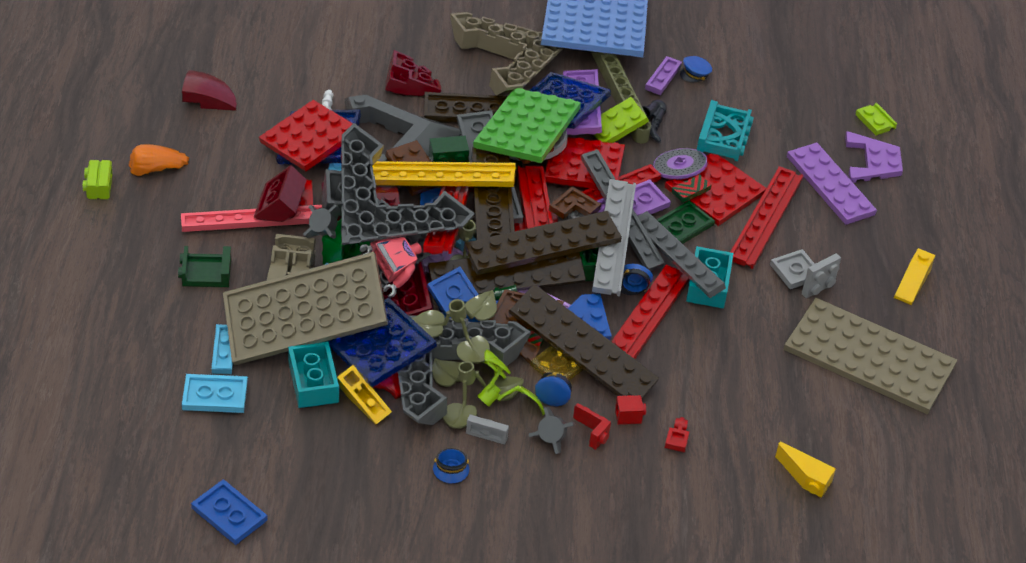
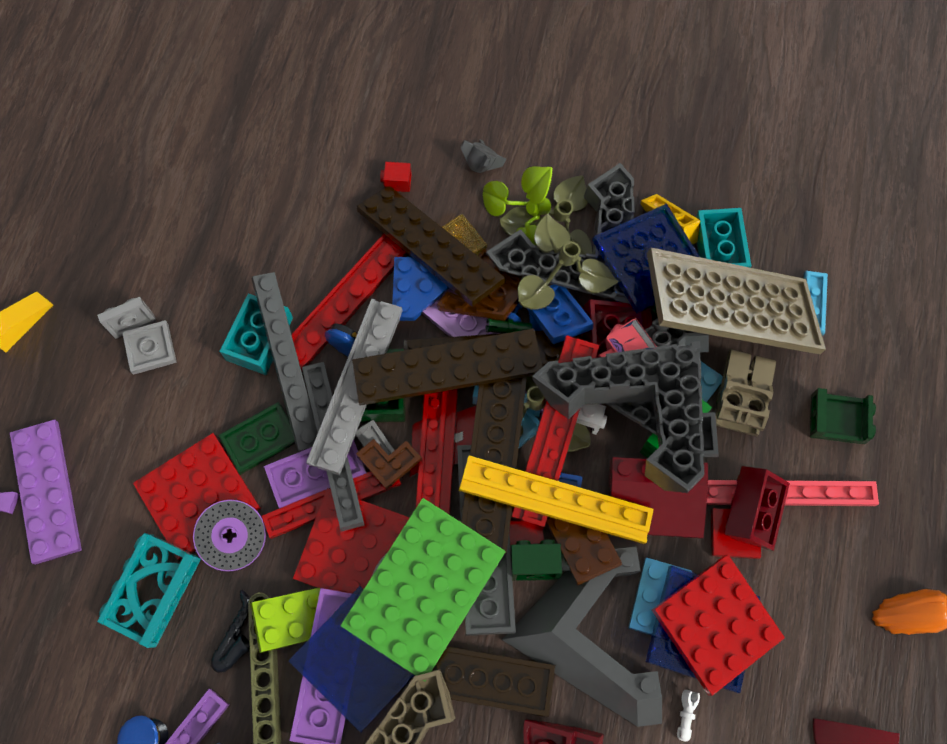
camera: 165 degrees left, 25 degrees up
(214, 393) = (822, 241): medium azure plate -> none
(229, 512) = (802, 107): blue plate -> none
(323, 222) = (718, 403): dark grey piece -> none
(451, 465) = (587, 135): blue piece -> none
(487, 429) = (559, 172): light grey plate -> none
(553, 389) = (471, 201): blue piece -> none
(598, 423) = (431, 155): red bracket -> none
(678, 436) = (356, 142): red plate -> none
(691, 188) = (231, 479): dark green tile -> none
(765, 217) = (150, 436): red plate -> none
(807, 471) = (238, 88): yellow slope -> none
(871, 355) = (117, 227): dark tan plate -> none

